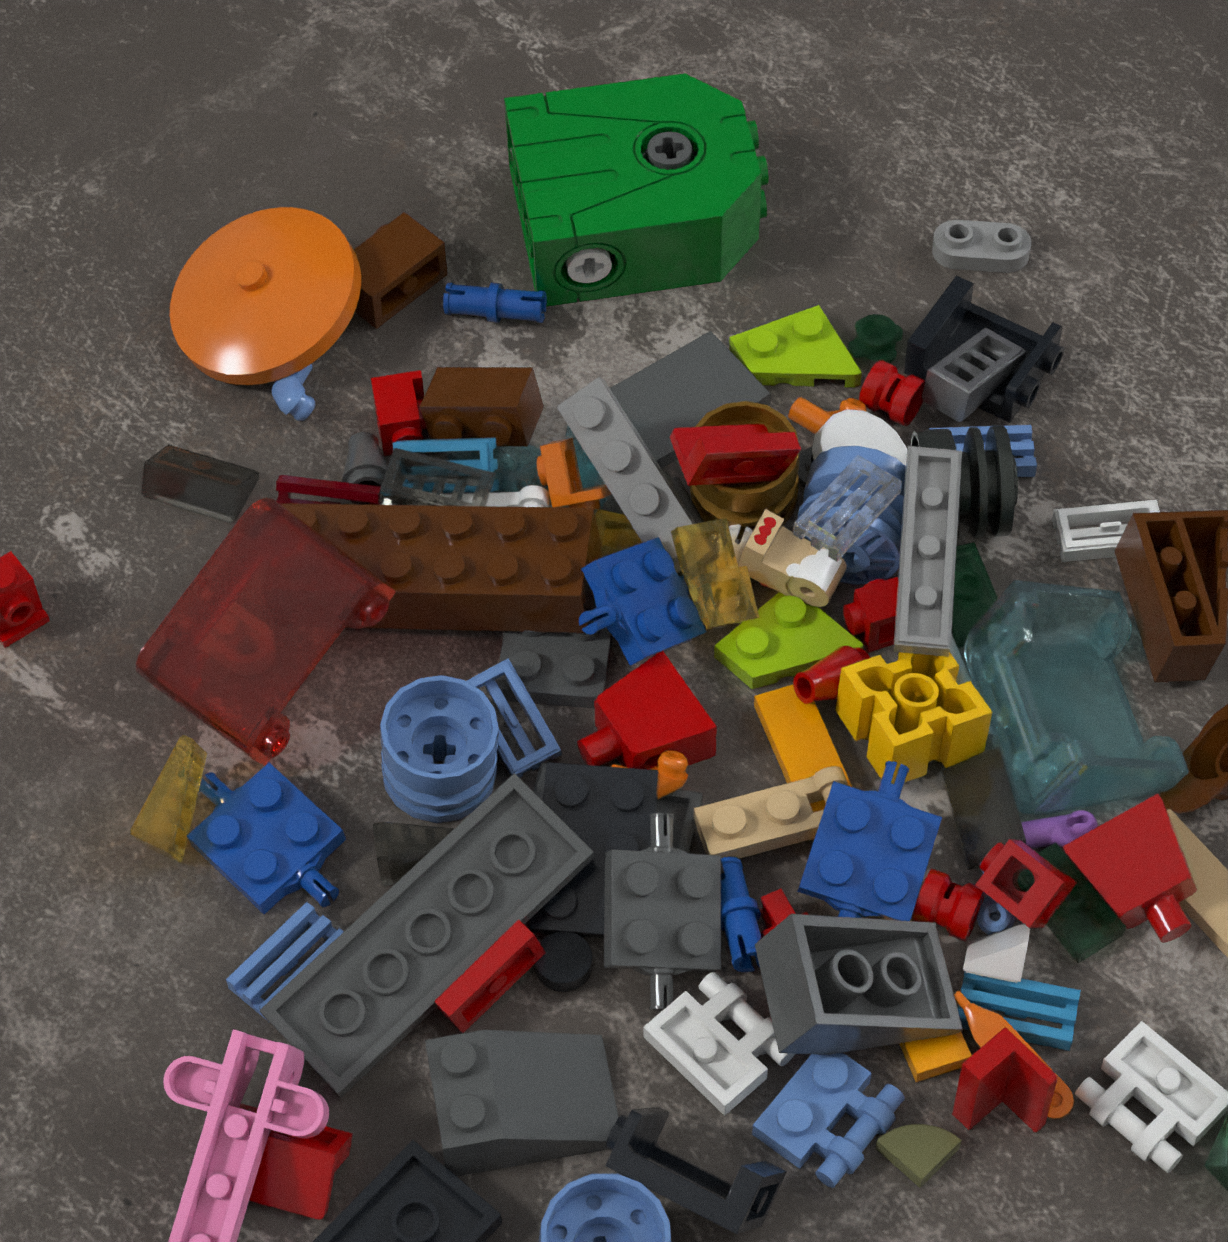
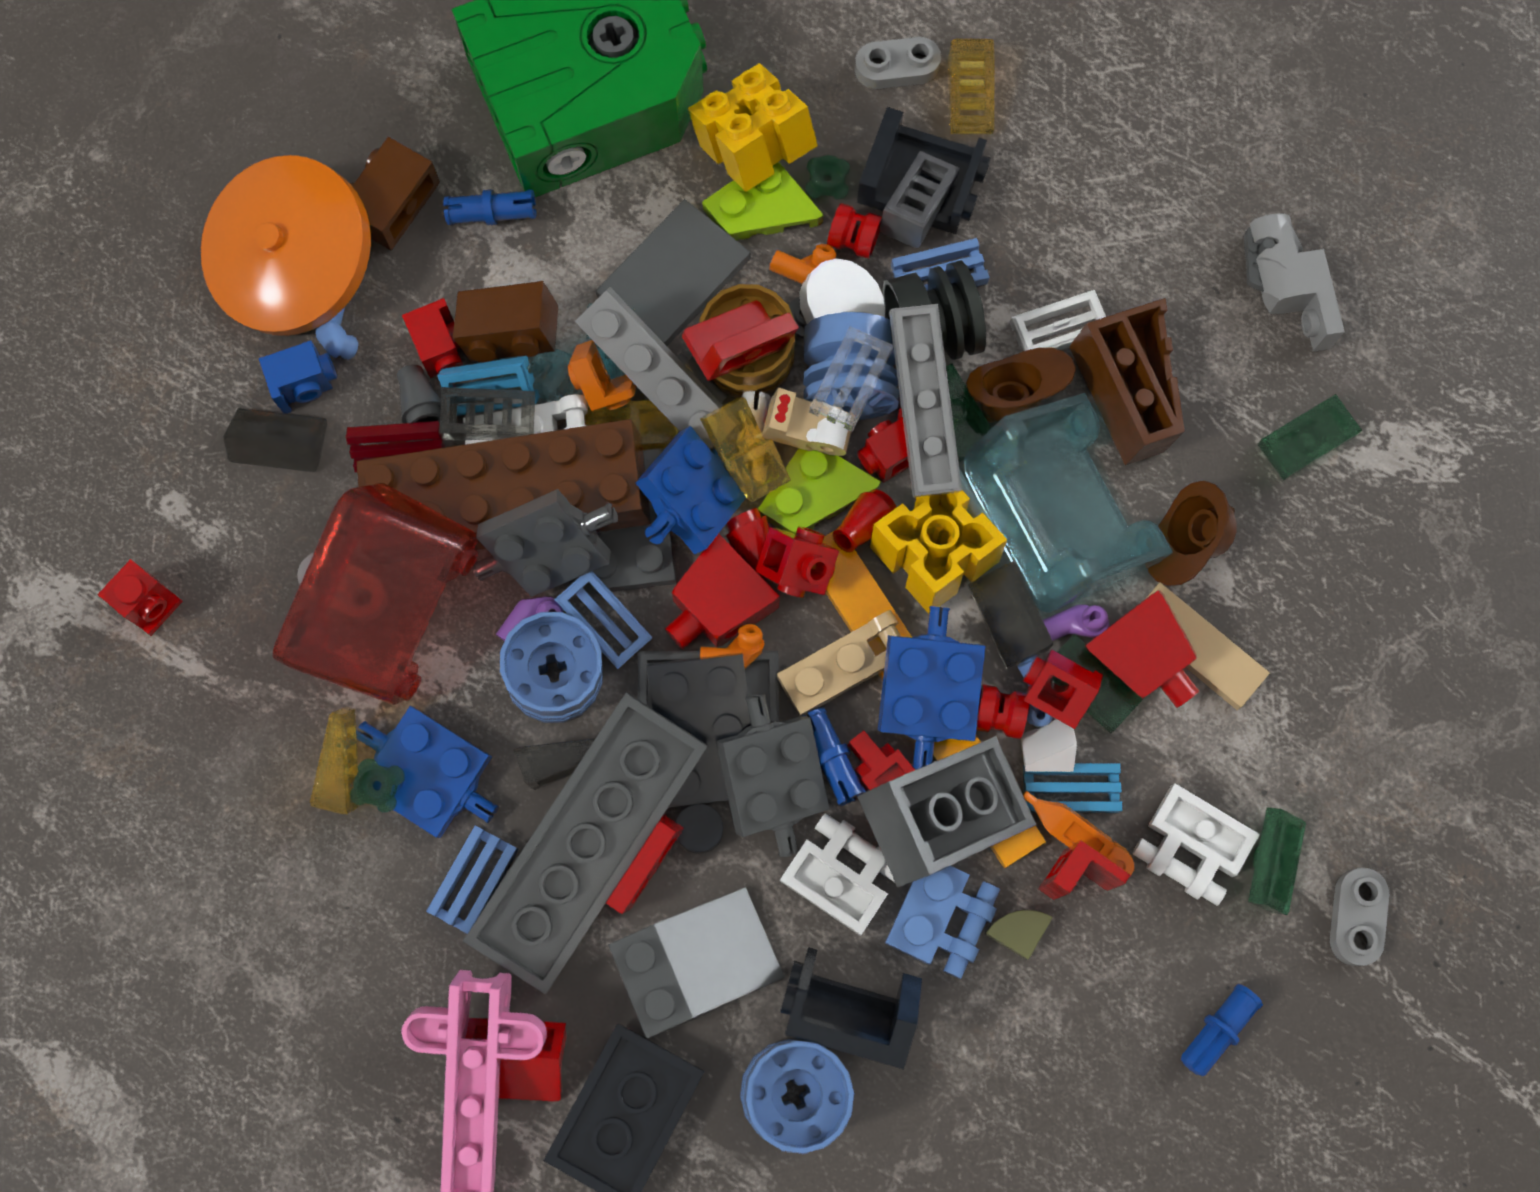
camera: 15 degrees left, 20 degrees up
(207, 814) = (368, 774): none -> clear green plate
(241, 419) = (297, 375): none -> blue brick
(465, 615) = (544, 542): none -> dark grey plate
(702, 670) = (747, 535): none -> red cone
(746, 693) = (797, 561): none -> red brick
(802, 269) = (753, 126): none -> yellow brick
(1051, 563) = (1020, 381): none -> reddish brown piece
(1062, 251) = (971, 58): none -> clear yellow slope

